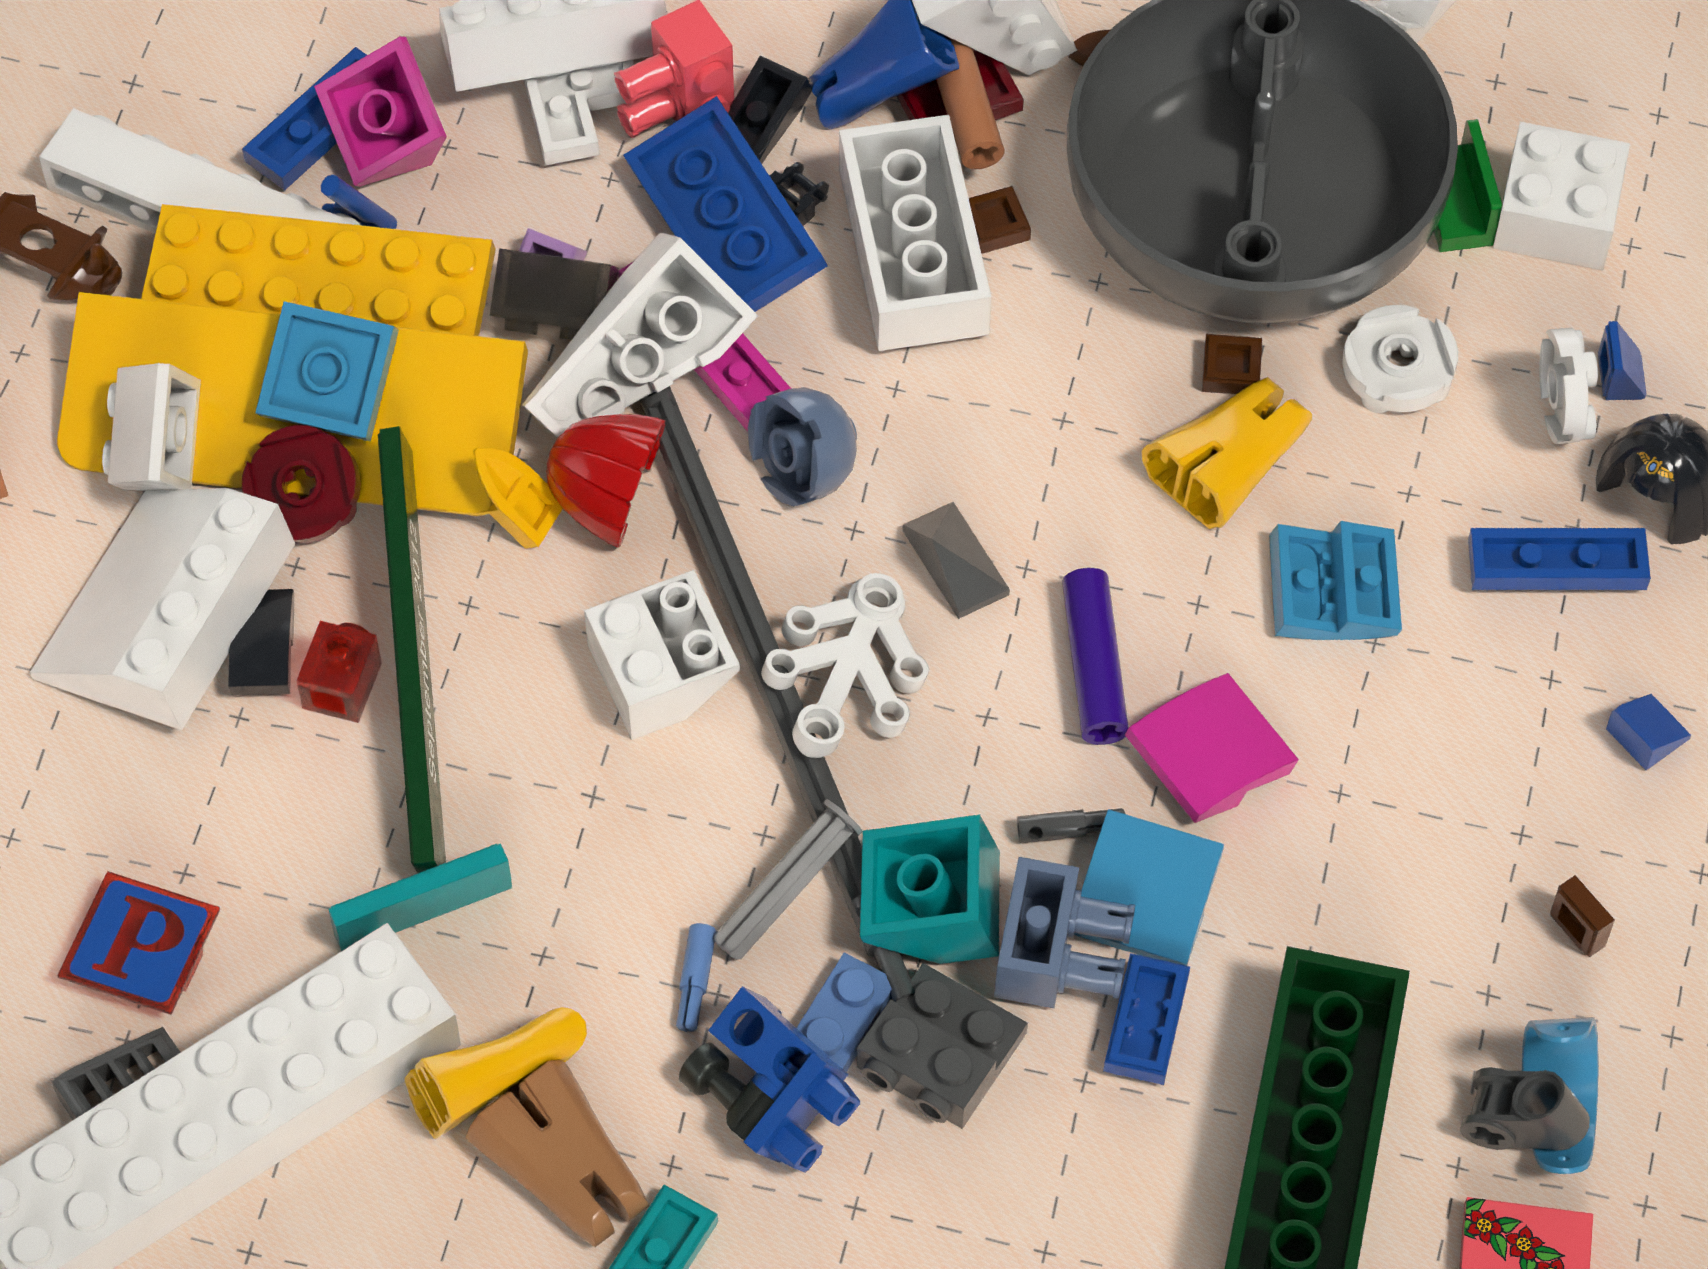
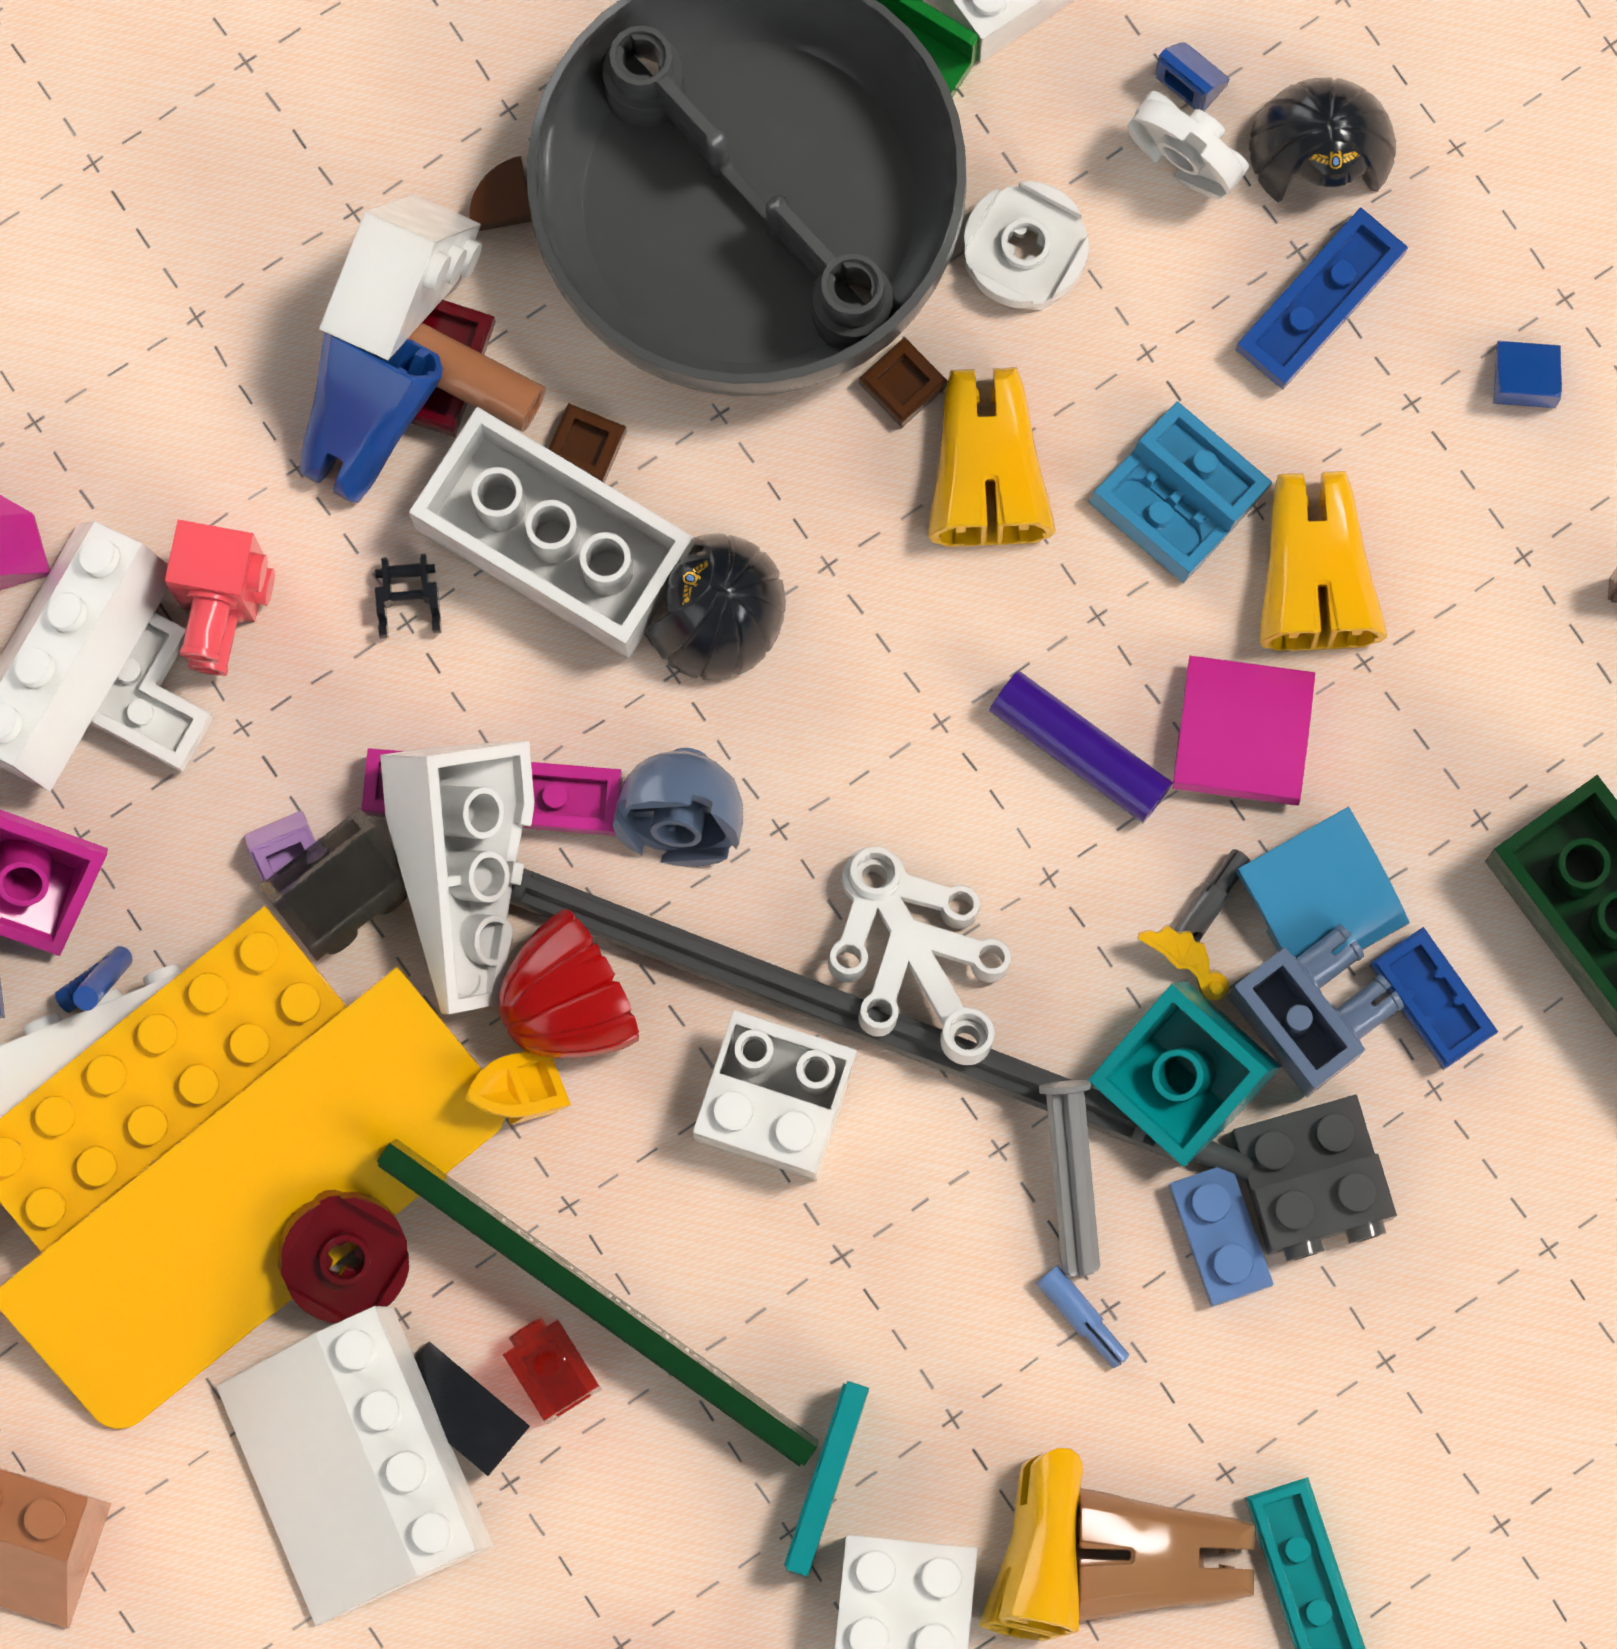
camera: 45 degrees left, 20 degrees up
(152, 428) = (185, 1345): white slope -> none
(327, 371) = (271, 1154): dark azure plate -> none
(725, 205) = (378, 666): blue plate -> none
(768, 104) = (298, 548): black slope -> none
(789, 1085) = (1254, 1329): blue hips -> none
(956, 560) = (884, 773): dark grey slope -> none
(964, 367) = (720, 609): none -> black hair
(1016, 830) = (1188, 954): none -> yellow piece
(1369, 705) = (1318, 572): none -> yellow piece

